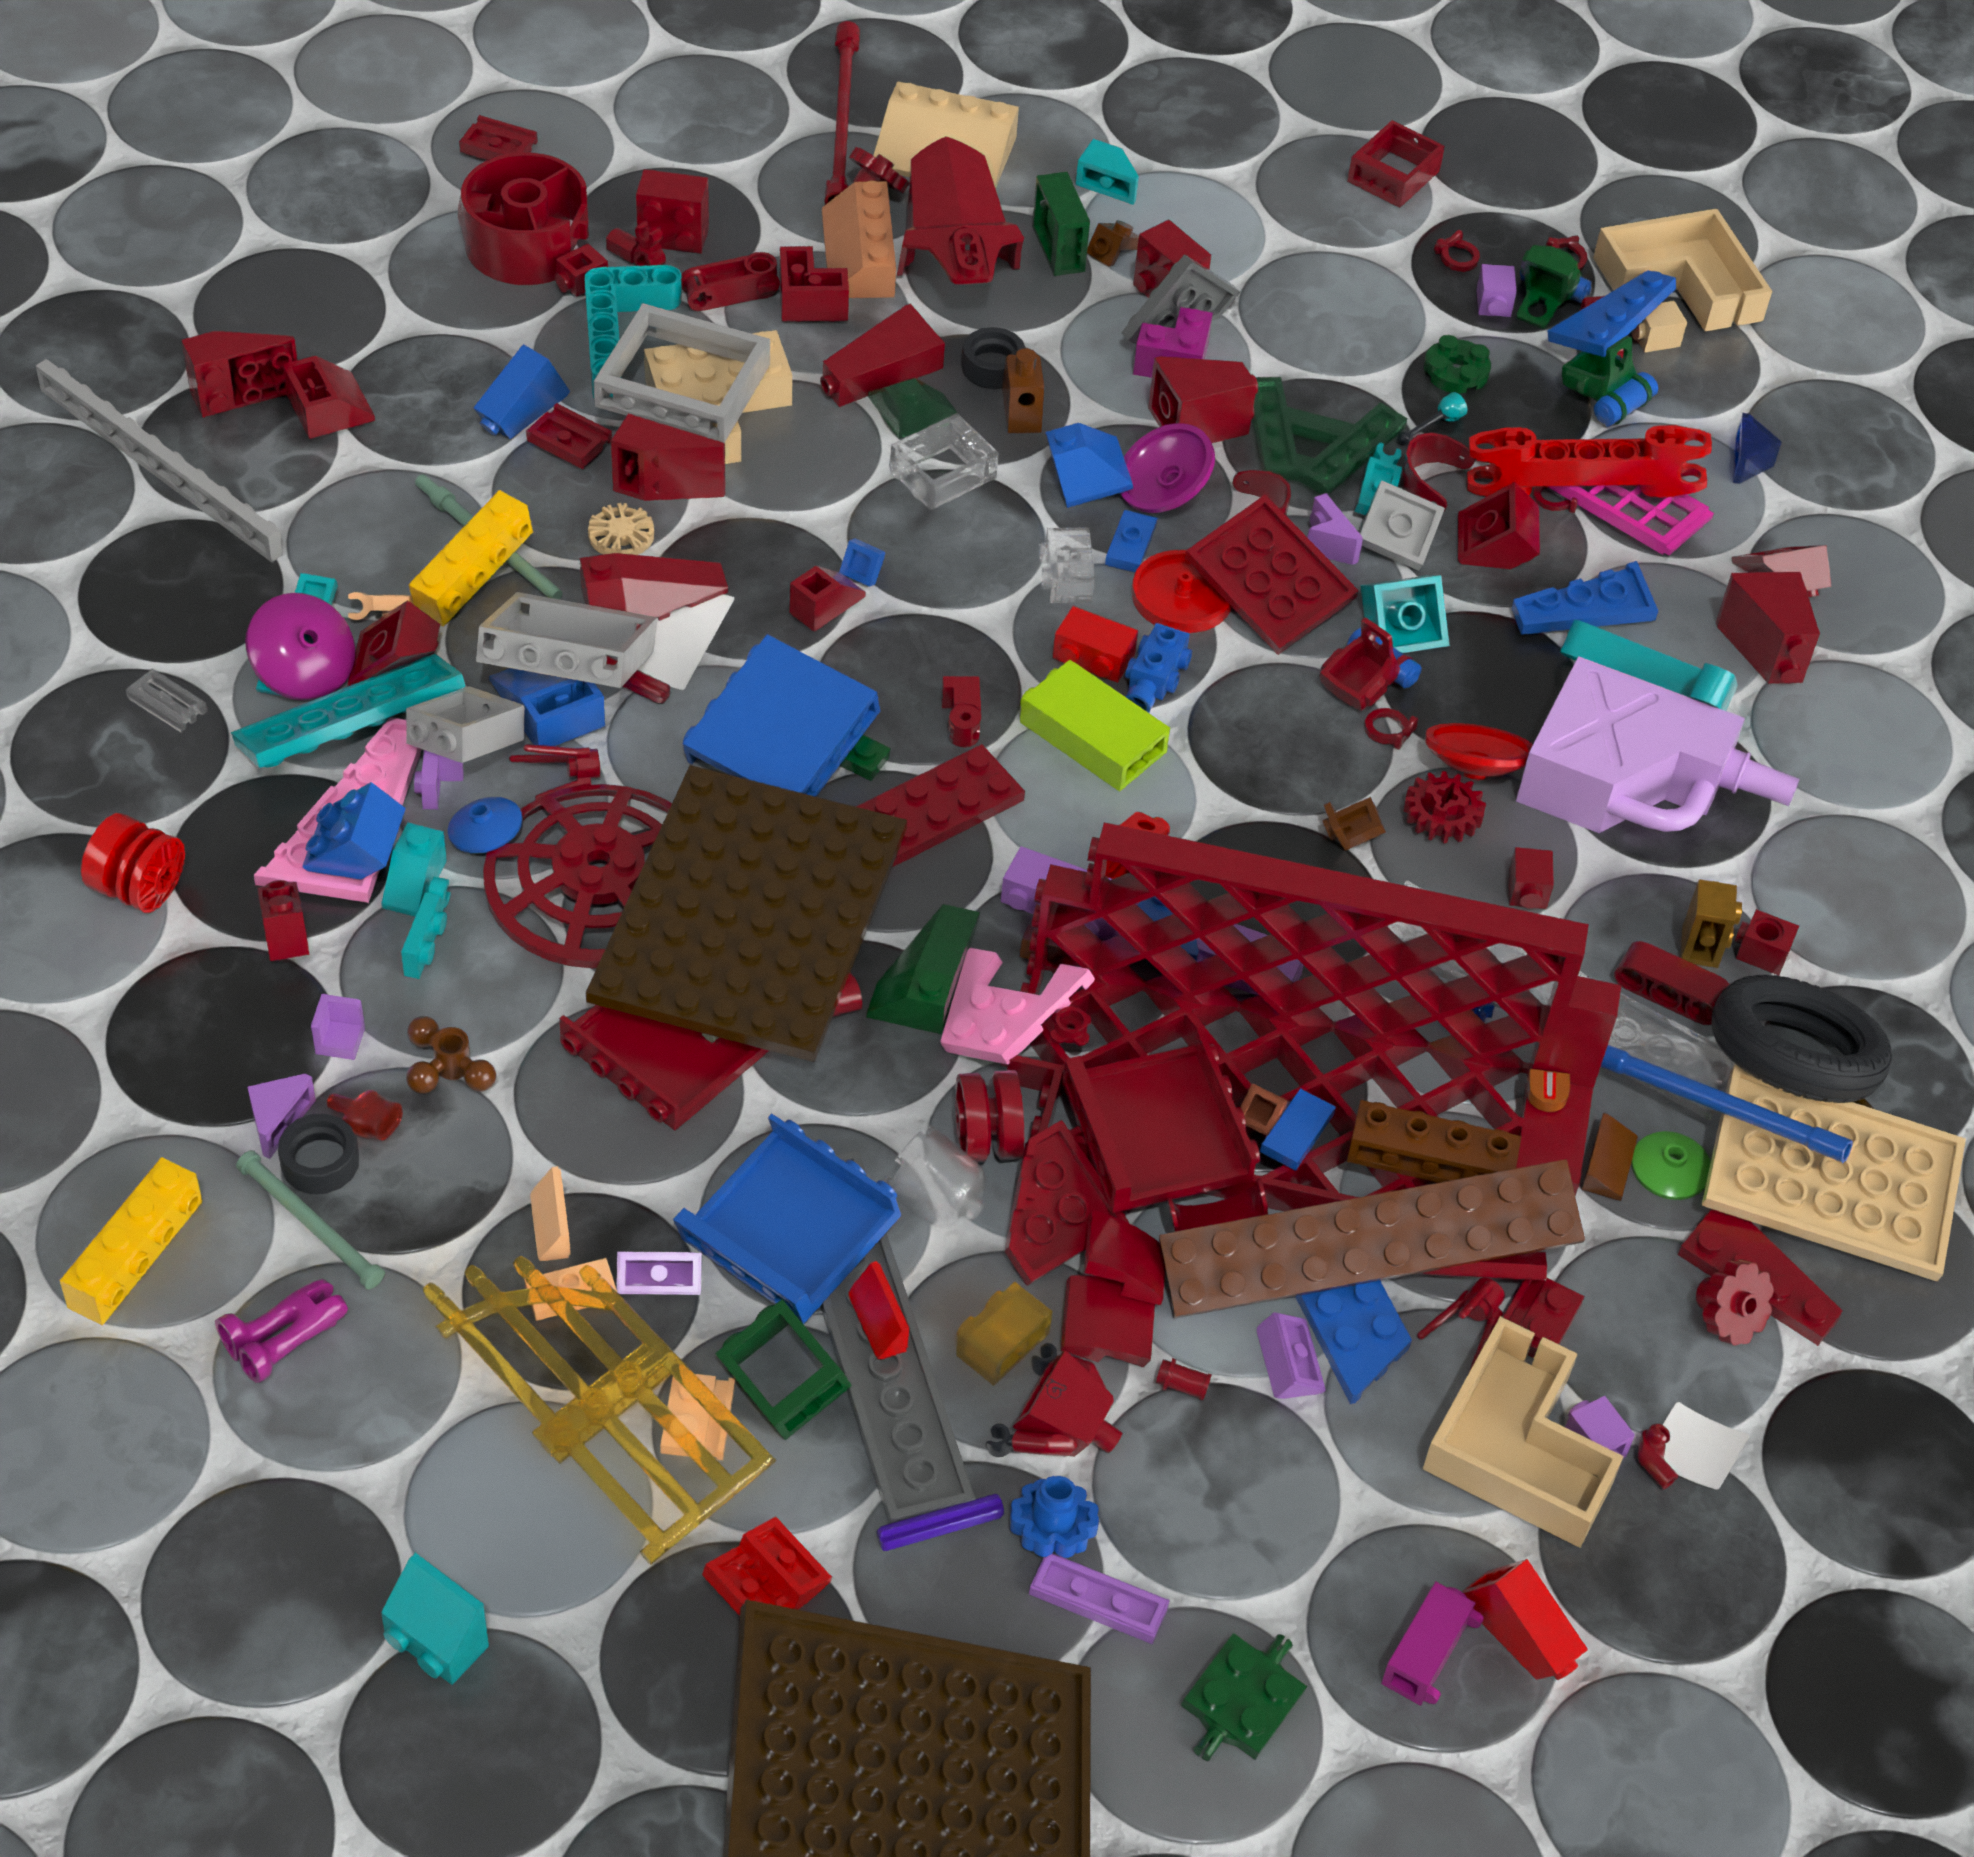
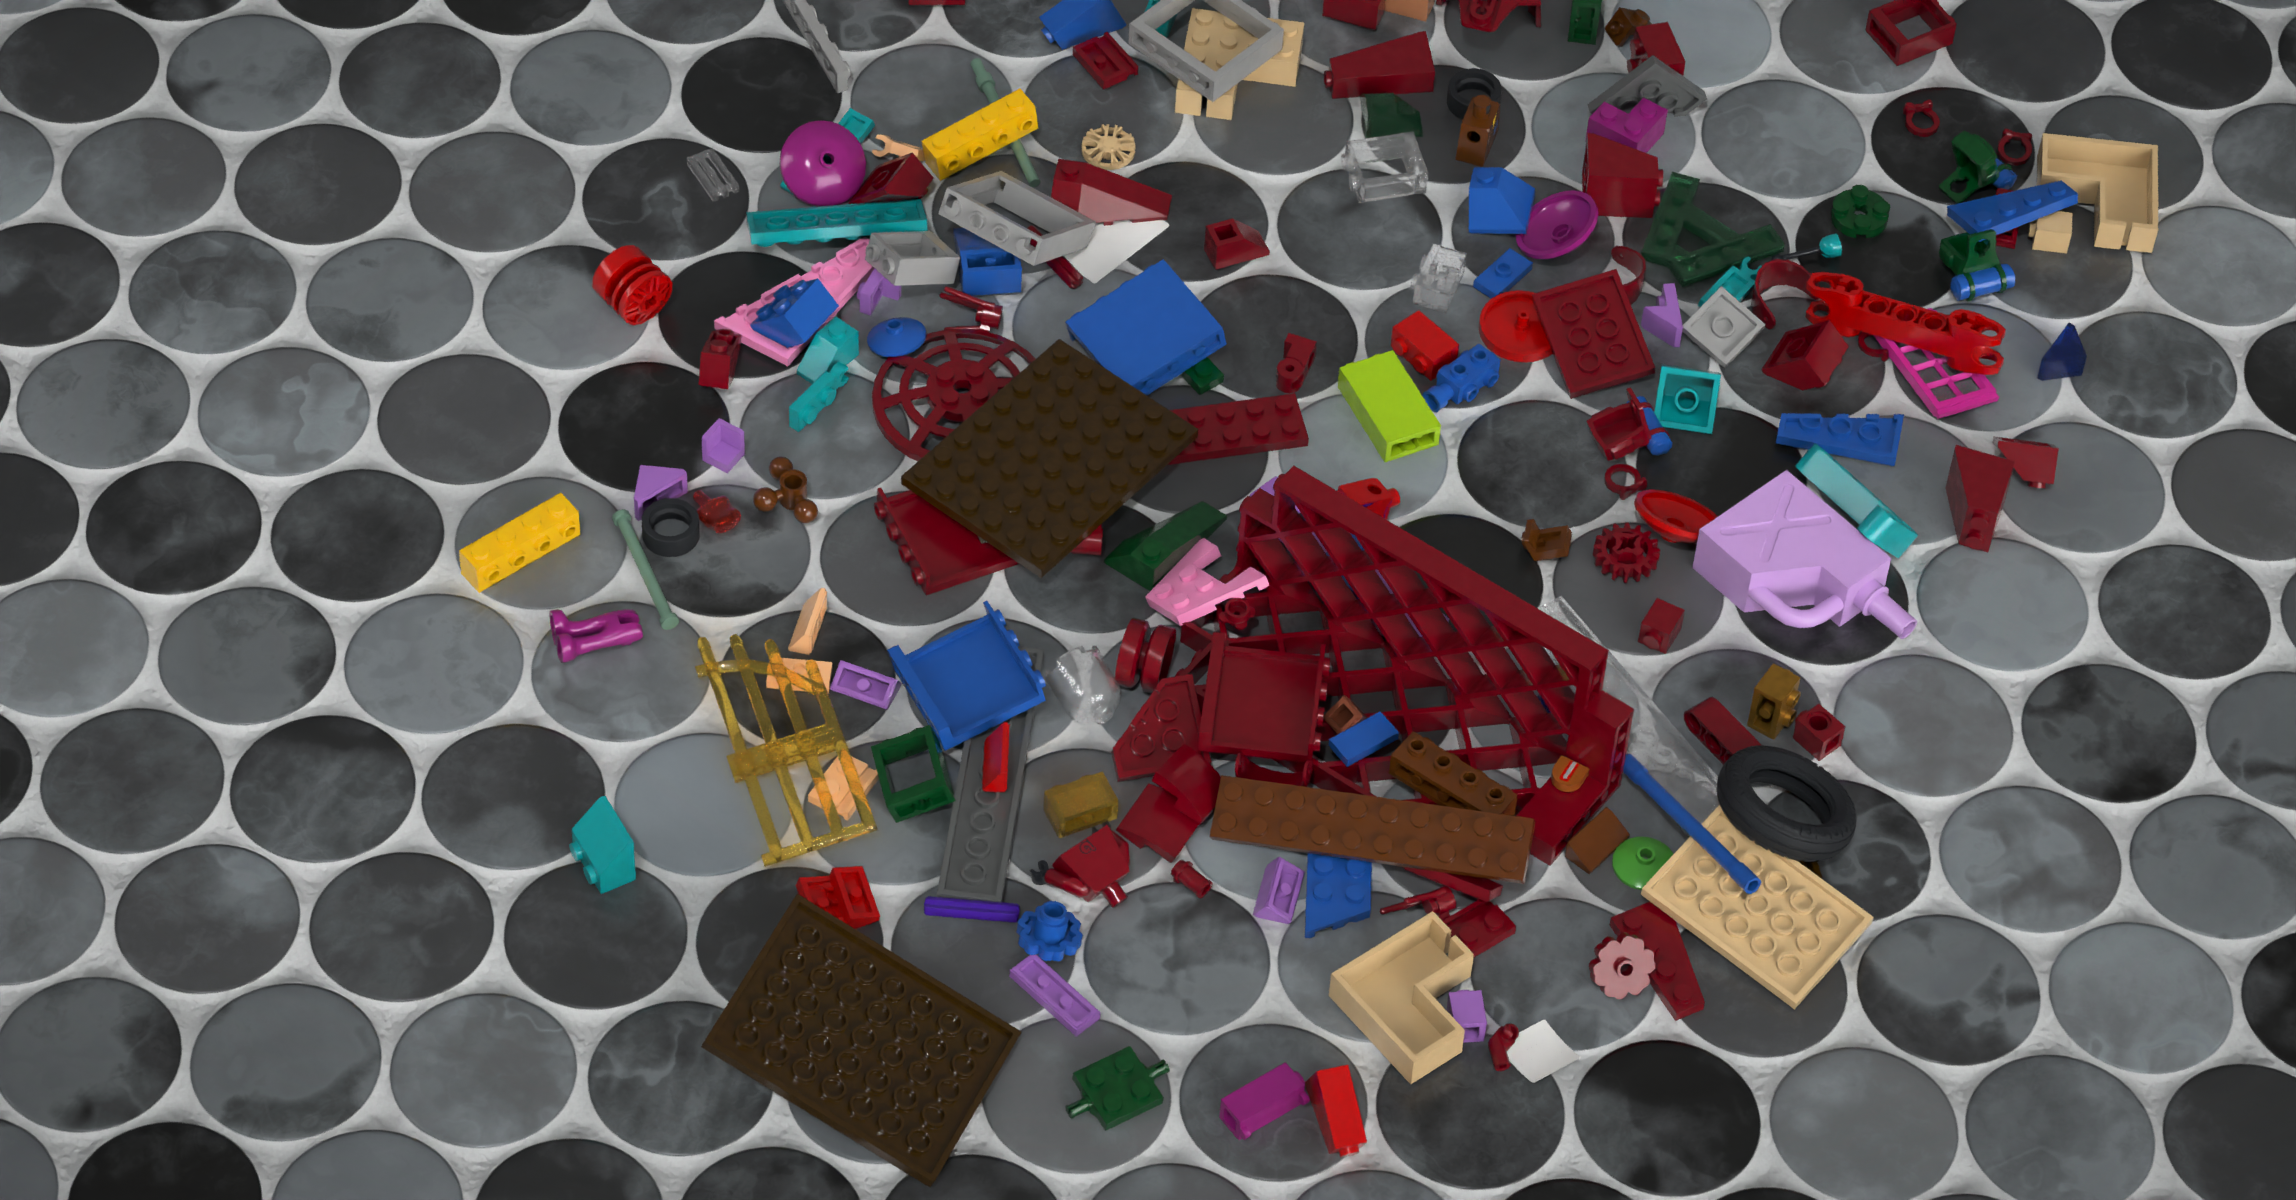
camera: 25 degrees right, 0 degrees up
(665, 462) = (1162, 103): dark red slope -> none
(862, 562) = (1279, 227): blue tile -> none
(1496, 290) = (1929, 160): medium lavender brick -> none

